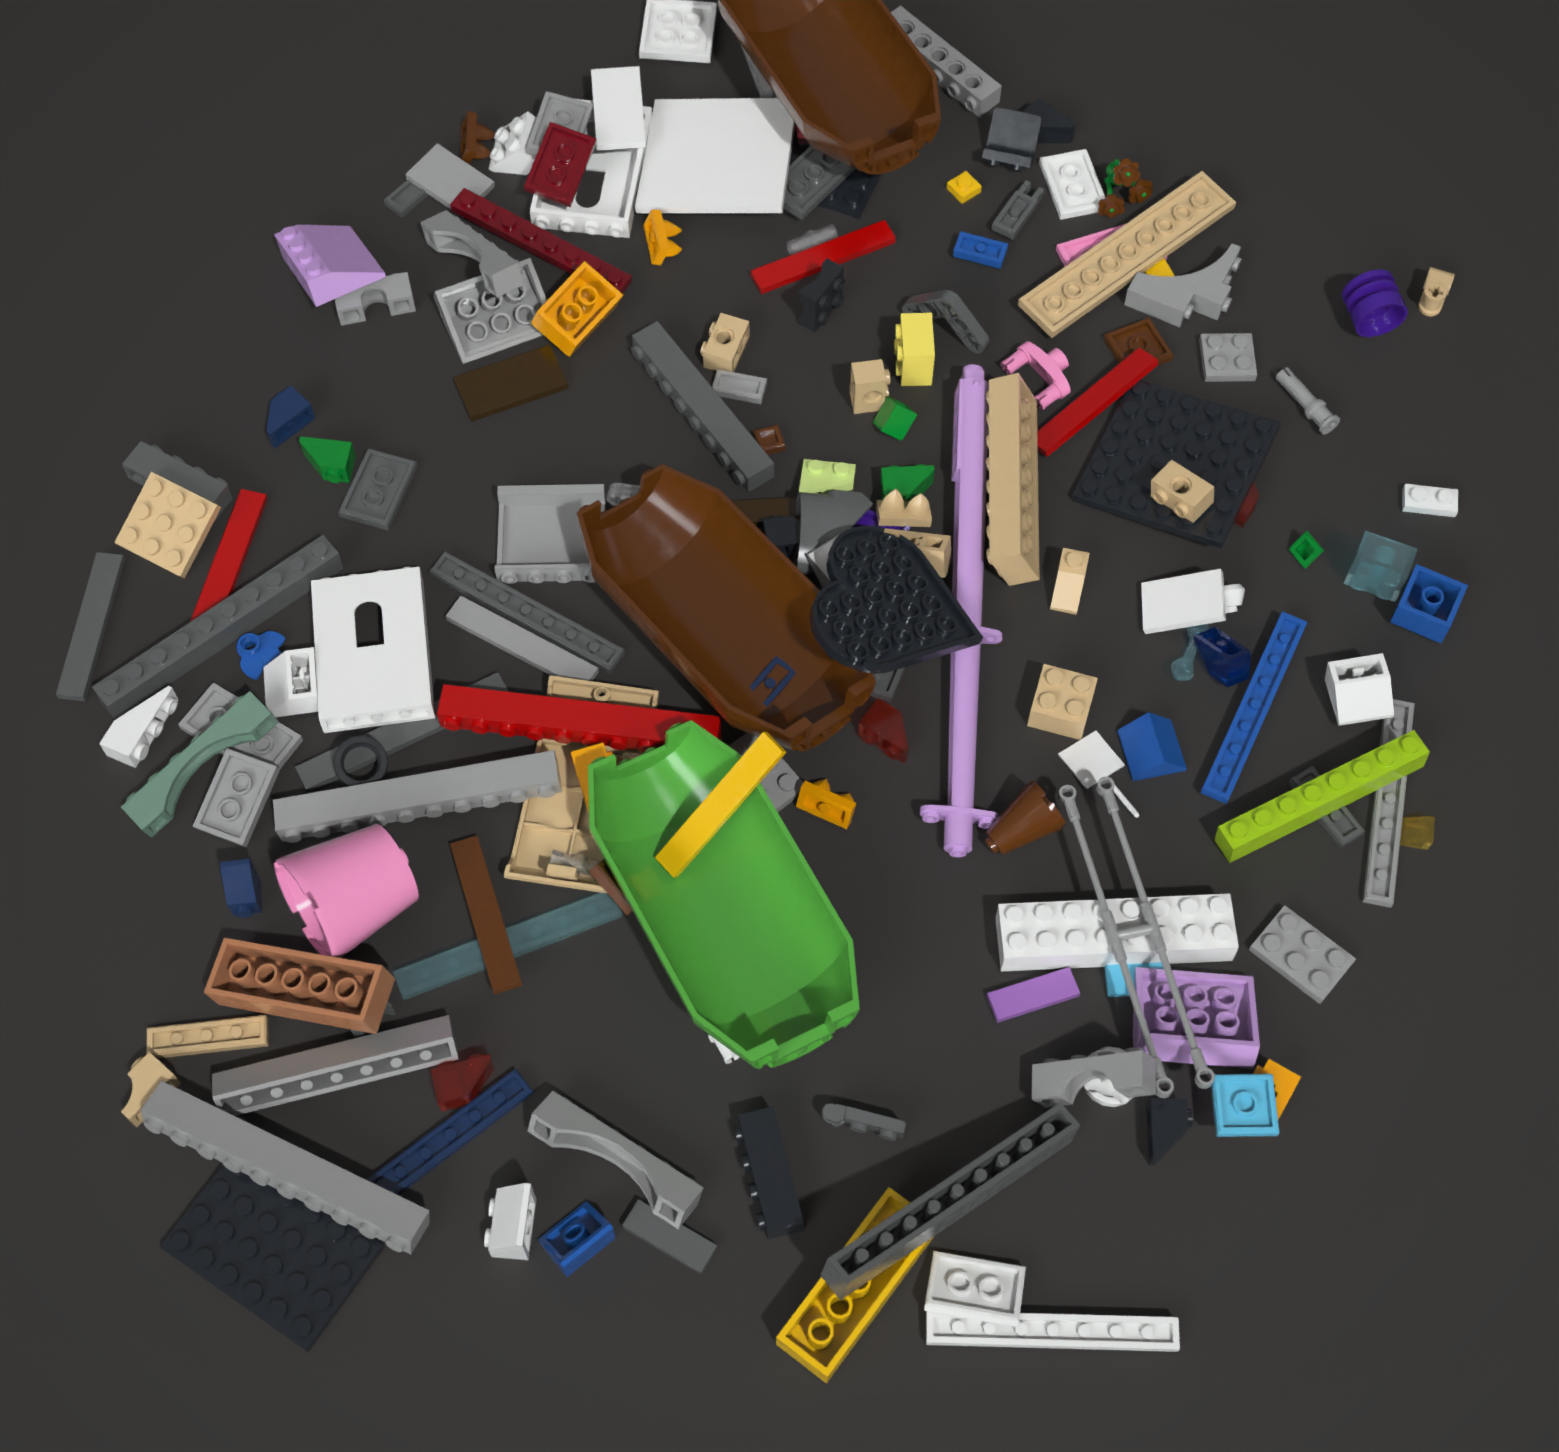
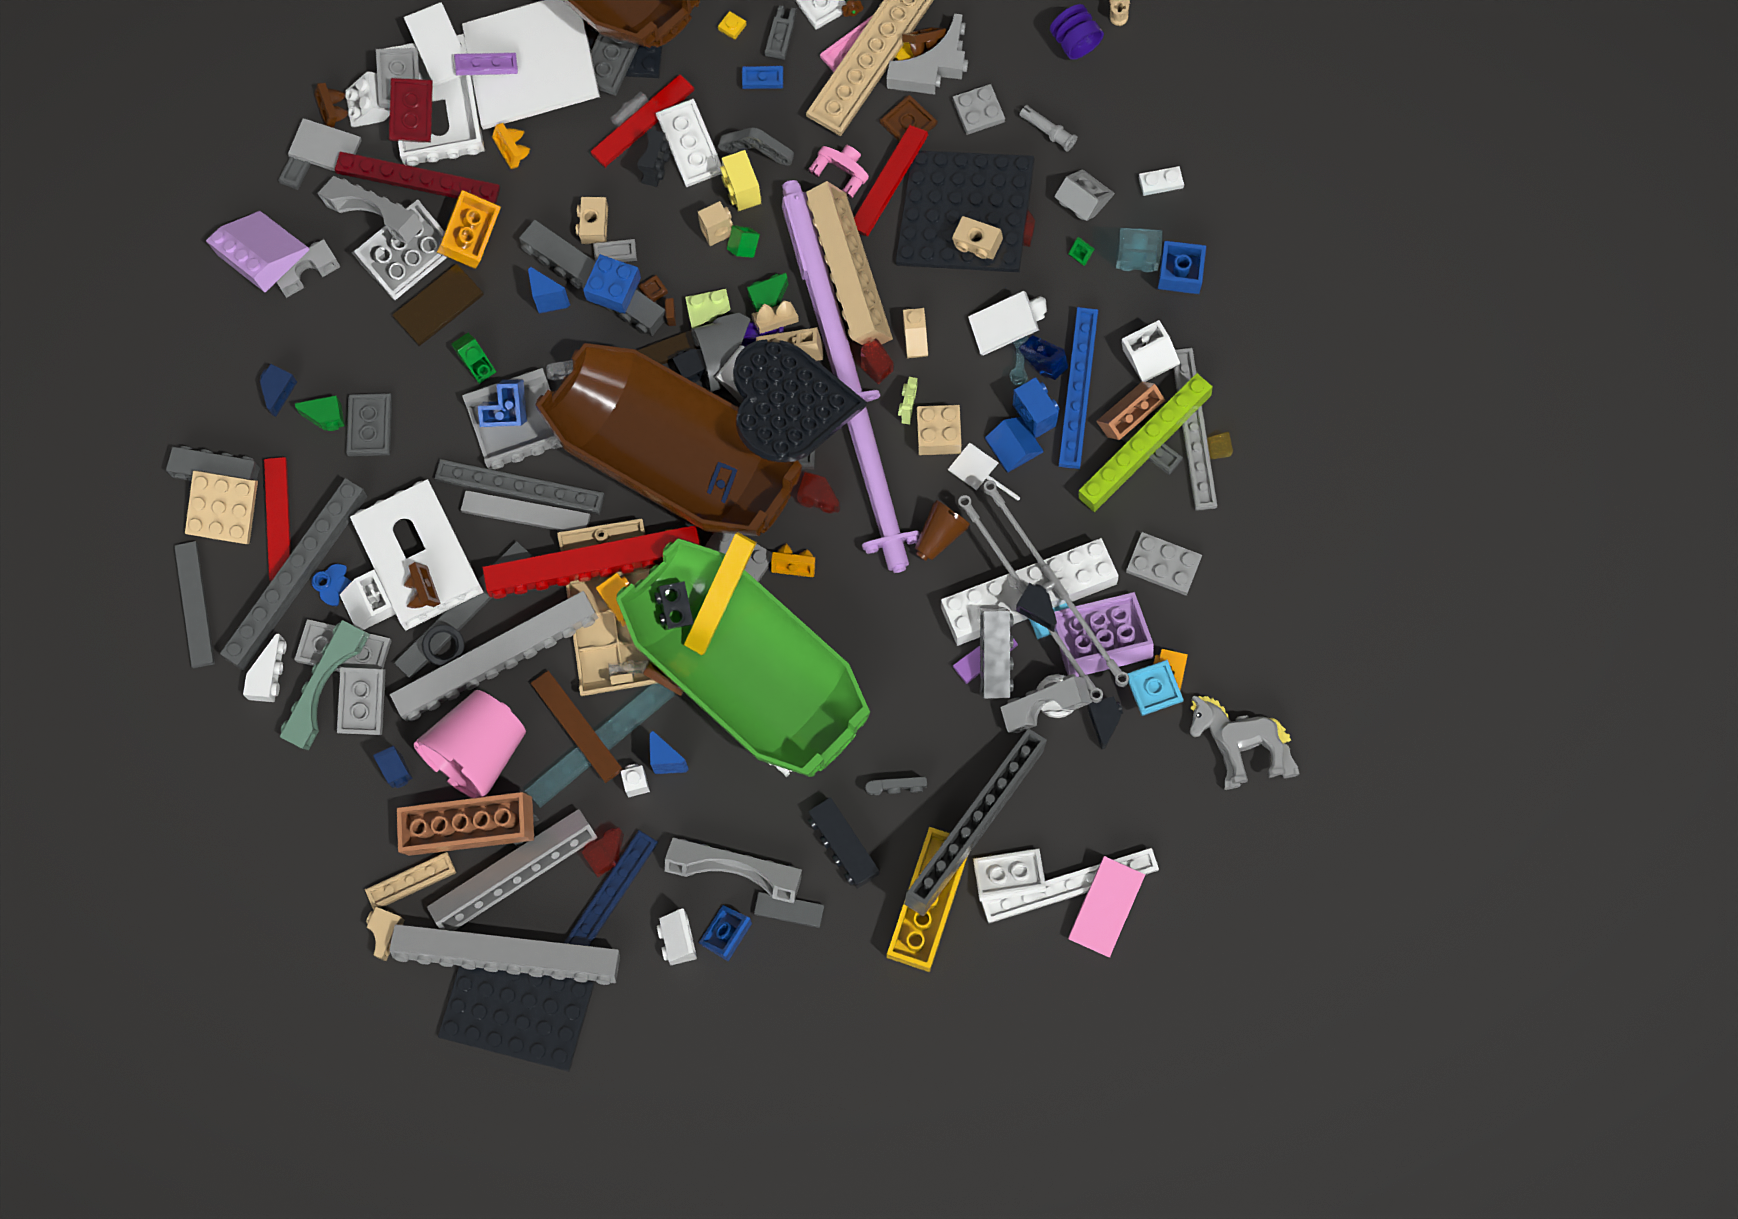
camera: 15 degrees left, 10 degrees up
(363, 676) = (421, 580): none -> reddish brown tile
(528, 451) = (473, 357): none -> green slope
(532, 1004) = (635, 780): none -> white brick
(548, 515) = (508, 410): none -> blue brick
(578, 987) = (665, 758): none -> blue slope
(641, 403) = (547, 293): none -> blue slope
(664, 142) = (485, 63): none -> medium lavender tile
(666, 805) = (680, 605): none -> black brick
(721, 413) = (612, 283): none -> blue brick
(779, 470) = (670, 312): none -> reddish brown tile
(869, 294) = (689, 142): none -> white tile
(1010, 597) = (876, 361): none -> clear red slope
(1035, 655) = (909, 394): none -> yellowish green wing
(1047, 993) = (995, 653): none -> brick
(1092, 1376) = (1106, 906): none -> bright pink tile
(1120, 948) = (1037, 606): none -> black slope
(1178, 258) = (929, 36): none -> reddish brown tile
(1193, 710) = (1035, 407): none -> blue brick
(1314, 752) = (1130, 410): none -> nougat brick
(1327, 486) = (1083, 194): none -> light grey slope
(1344, 1208) = (1242, 736): none -> light grey animal

